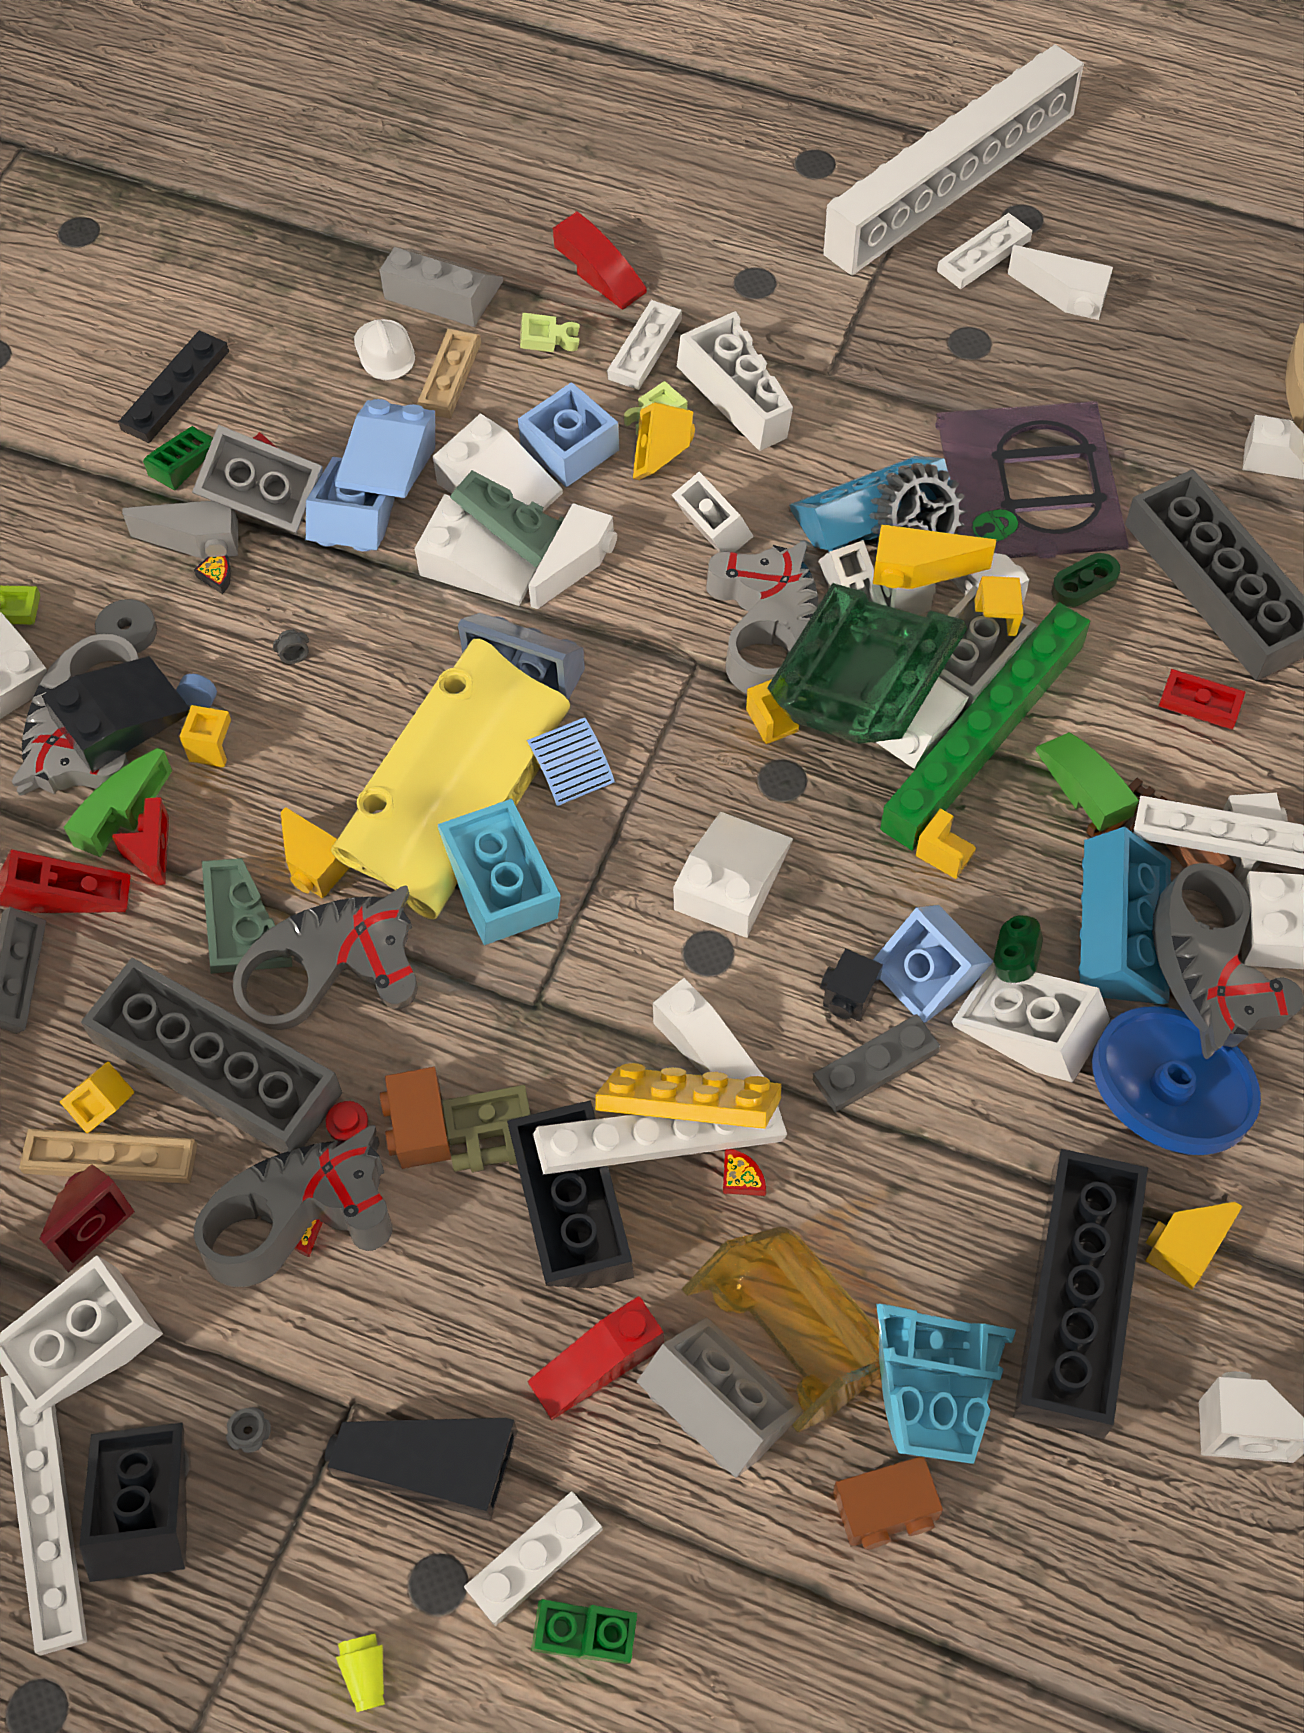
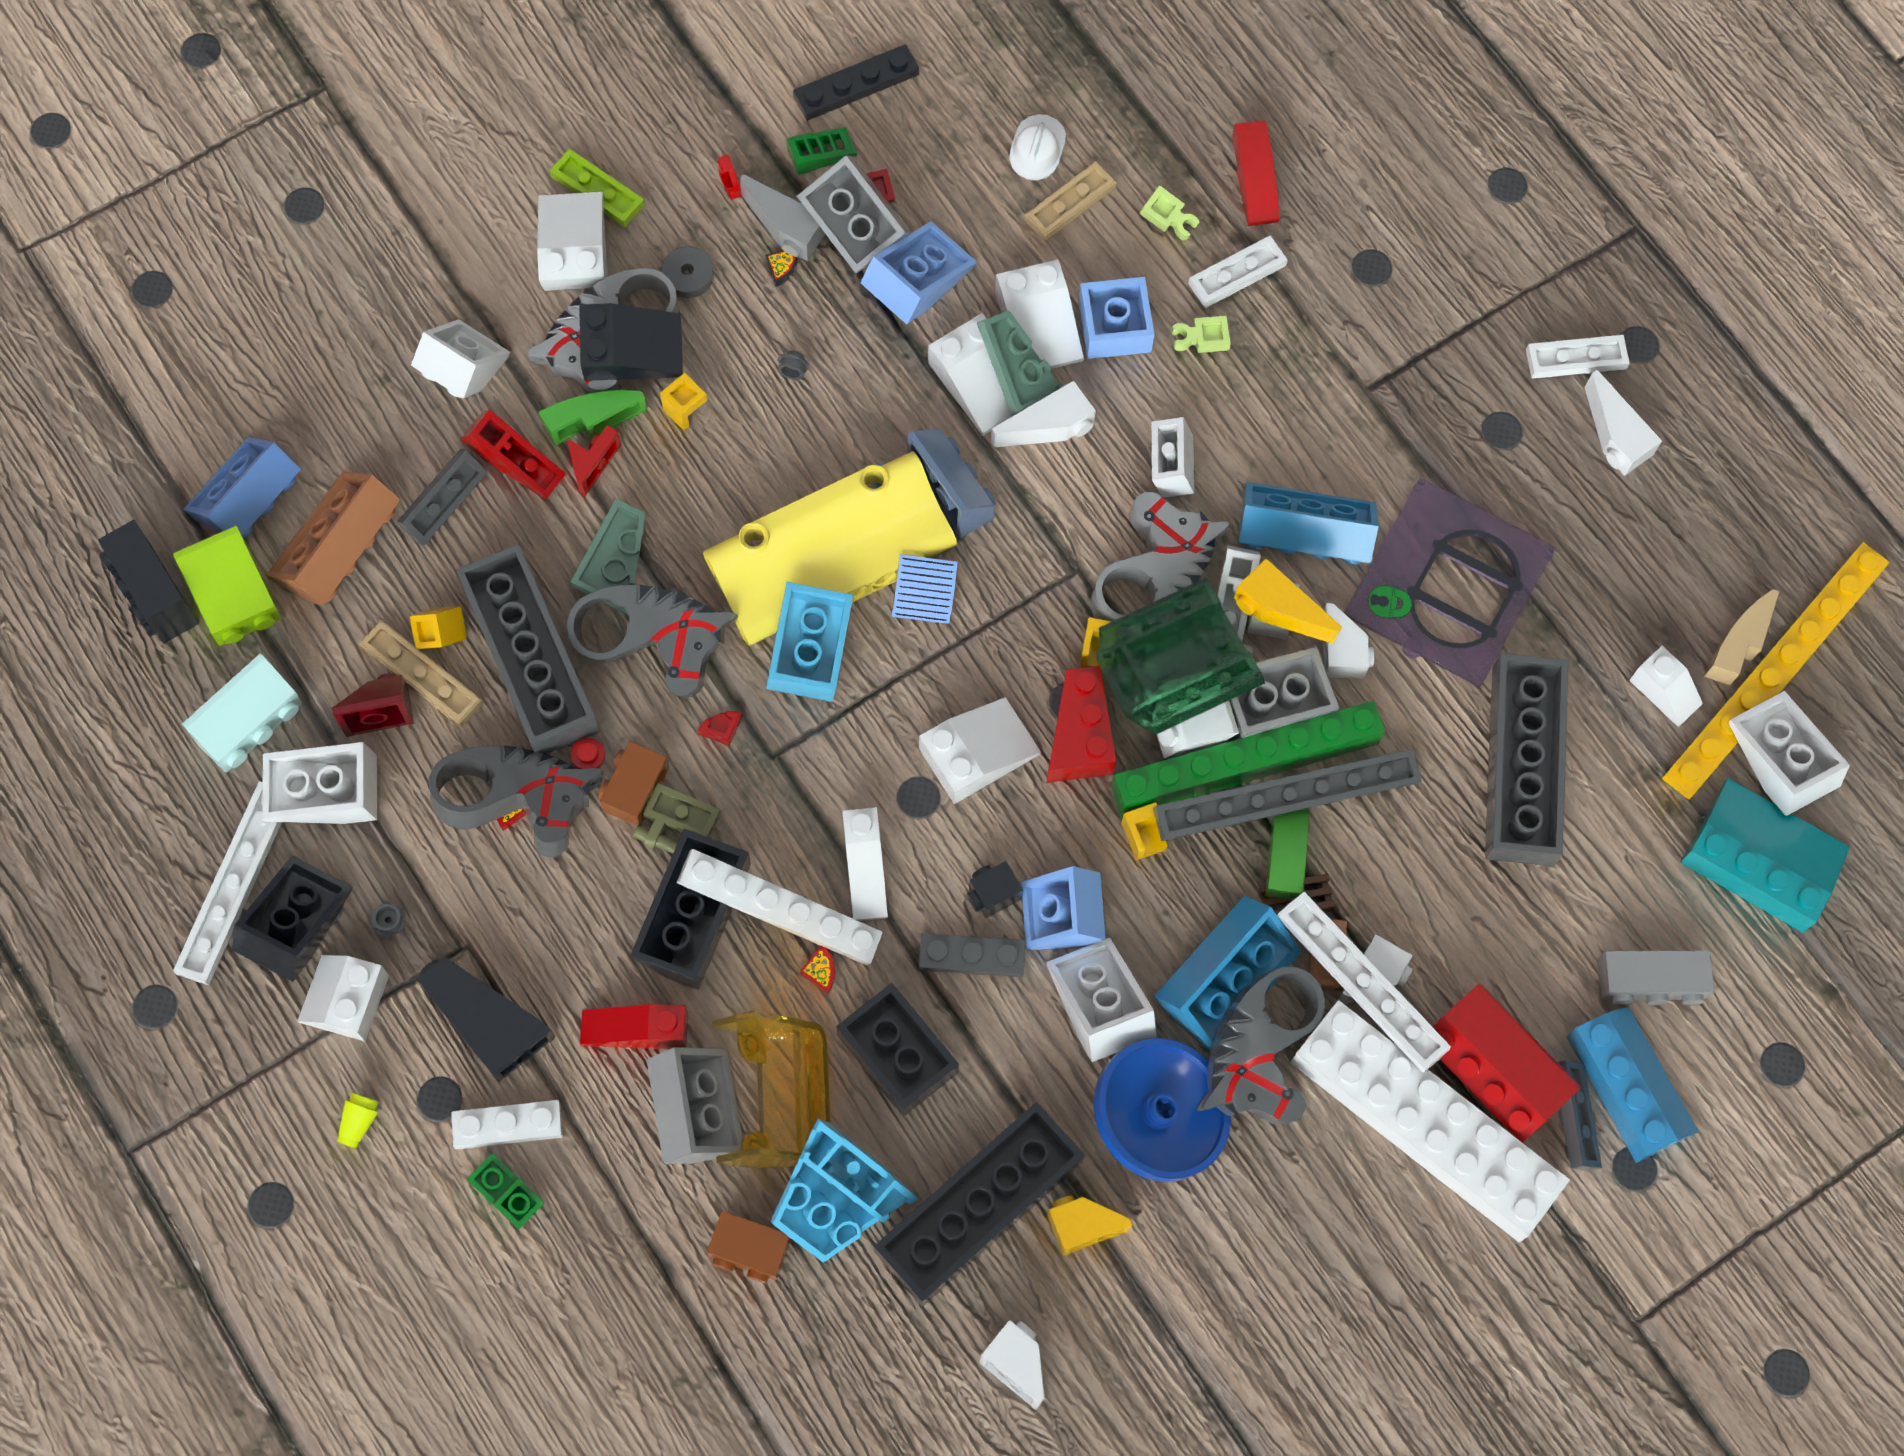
camera: 30 degrees right, 10 degrees up
(108, 523) = (728, 177): none -> red tile
(197, 690) = (701, 359): medium blue tile -> none
(253, 1544) = (344, 996): none -> white slope
(310, 855) = (691, 539): yellow slope -> none
(387, 448) = (968, 245): light blue slope -> none
(437, 285) = (1118, 114): light grey slope -> none
(464, 1010) = (721, 727): none -> red tile
(661, 436) = (1184, 366): yellow slope -> none
(689, 1096) = (818, 894): yellow plate -> none
(736, 380) = (1281, 344): white wedge -> none
(817, 789) = (1083, 729): none -> red wedge
(882, 1196) = (897, 1049): none -> black brick
(906, 488) = (1338, 560): dark grey gear -> none
(951, 159) = (1614, 257): white brick -> none
(1001, 599) = (1317, 674): yellow panel -> none
(1018, 949) = (1136, 941): dark green plate -> none
(1046, 732) = (1286, 794): none -> dark grey plate
(1082, 581) = (1419, 693): dark green plate -> none
(1202, 699) = (1428, 846): red plate -> none

